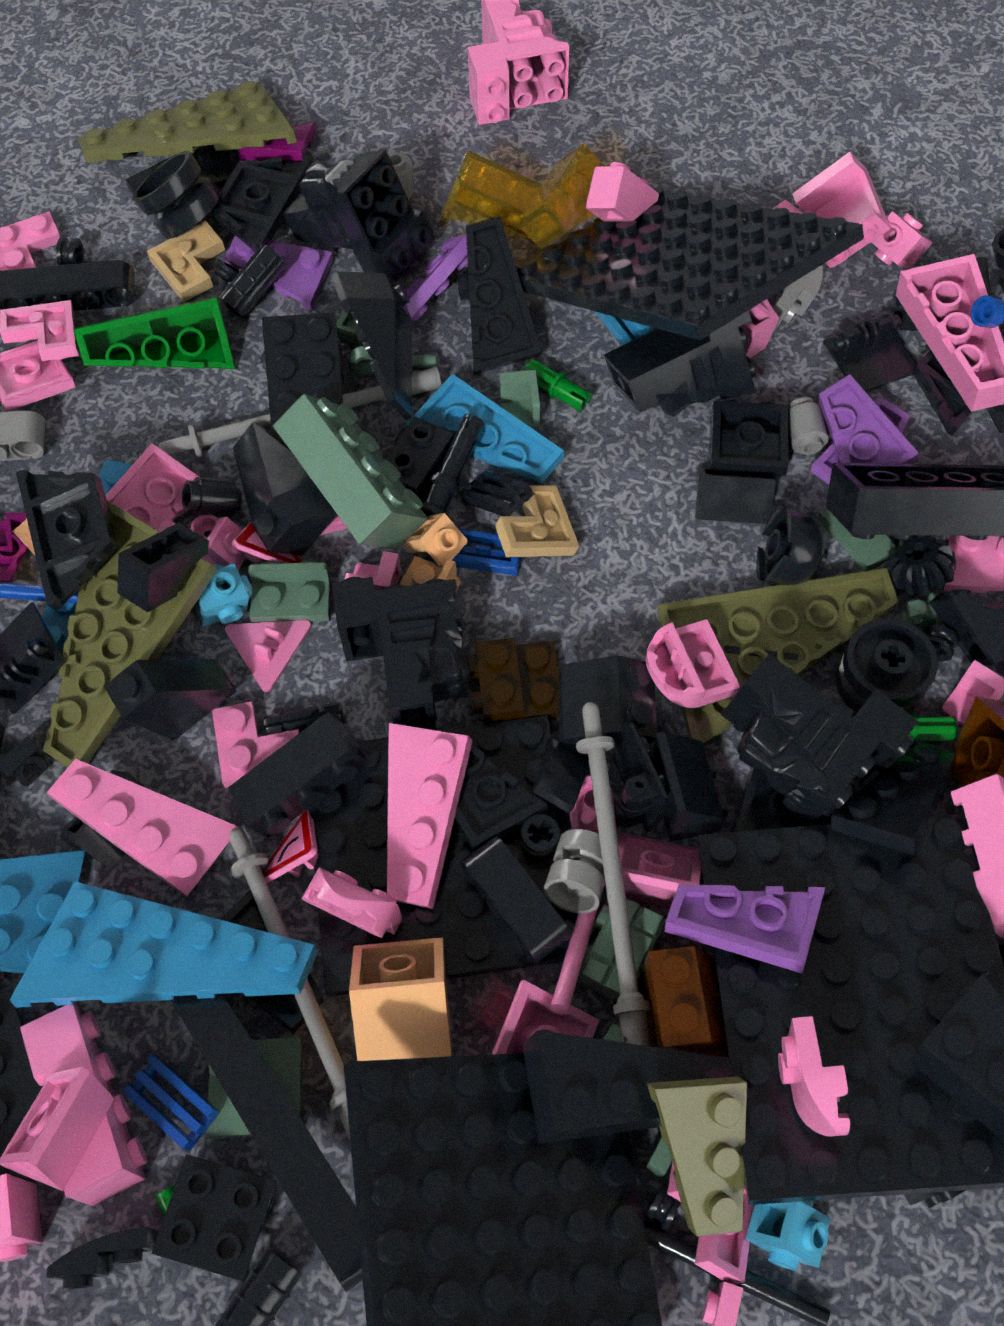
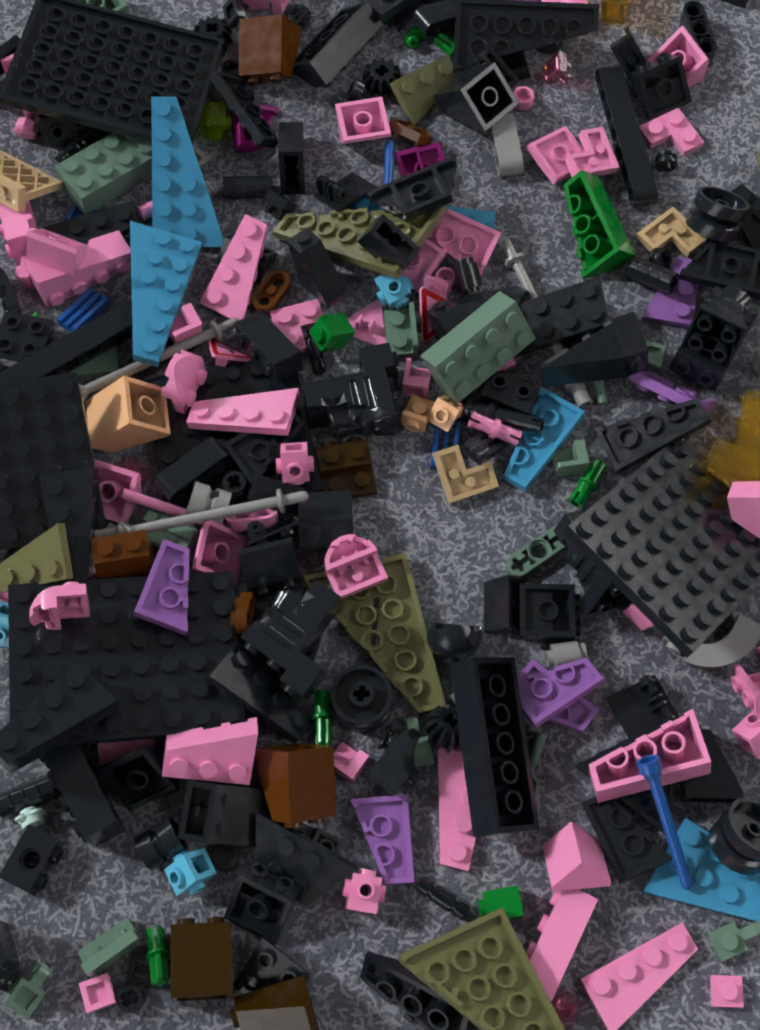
camera: 85 degrees right, 5 degrees up
(67, 1216) = (23, 275): none -> bright pink plate
(188, 781) = (268, 292): none -> reddish brown plate
(236, 903) = (186, 325): none -> bright pink panel
(281, 685) = (332, 332): none -> green brick
(471, 478) = (494, 428): none -> bright pink pin
(517, 735) = (294, 463): none -> bright pink brick
(654, 465) = (519, 555): none -> sand green beam
(782, 812) = (242, 617): none -> reddish brown plate

